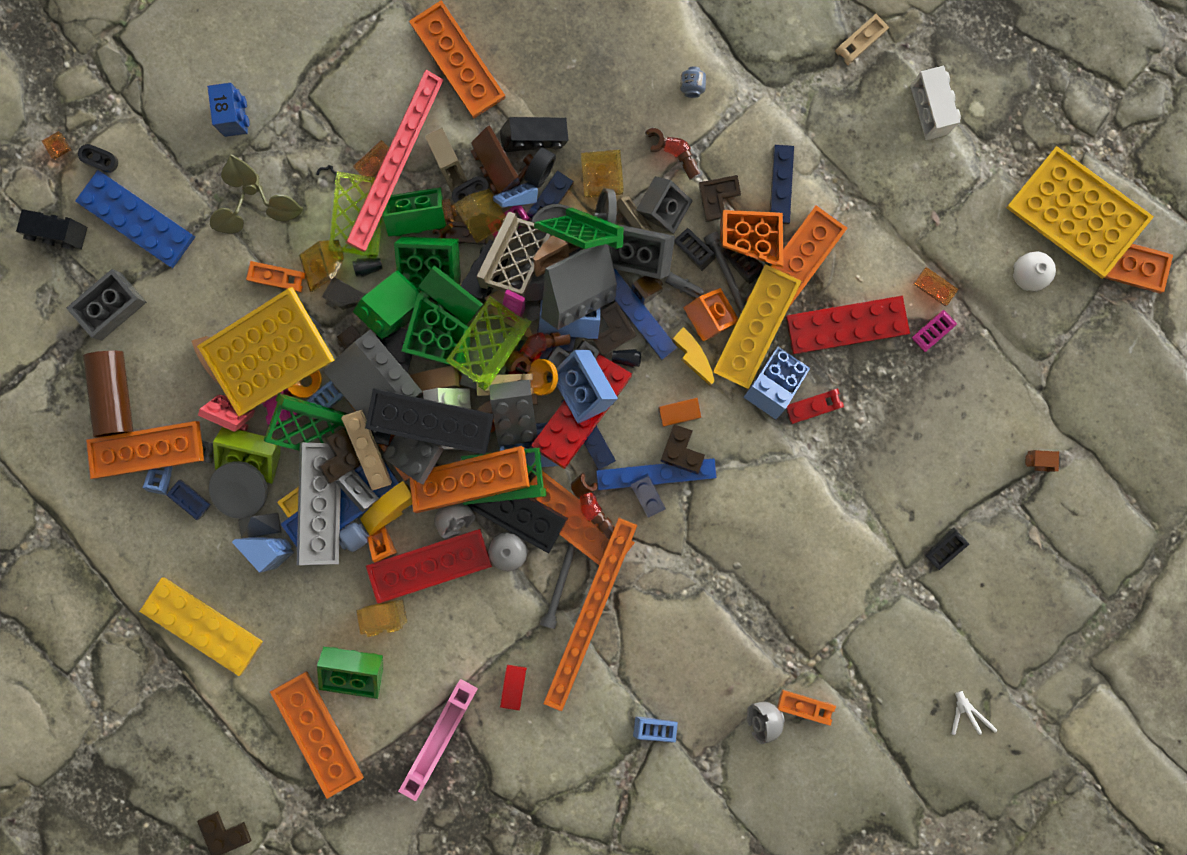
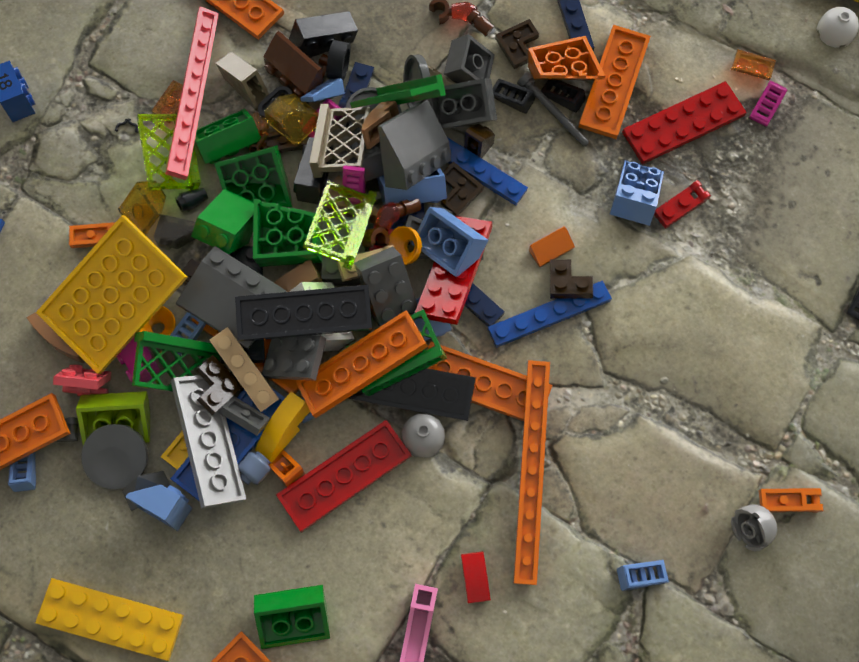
camera: 20 degrees left, 15 degrees down
(188, 499) = (62, 484): dark blue plate -> none
(238, 174) = (42, 138): olive plant -> none
(382, 616) = (310, 541): clear yellow brick -> none
(449, 295) = (286, 189): green slope -> none
(452, 518) = (355, 415): light grey cylinder -> none
(549, 618) = (490, 491): dark grey piece -> none
(589, 506) = (495, 359): reddish brown piece -> none
(601, 171) = (395, 46): clear yellow brick -> none
(628, 357) = (482, 210): black cone -> none
(647, 495) = (549, 334): dark blue plate -> none
(684, 285) = (514, 130): dark grey axle -> none
(694, 355) = (547, 190): yellow slope -> none
(711, 314) = (549, 148): orange slope -> none
(757, 326) = (599, 144): yellow plate -> none

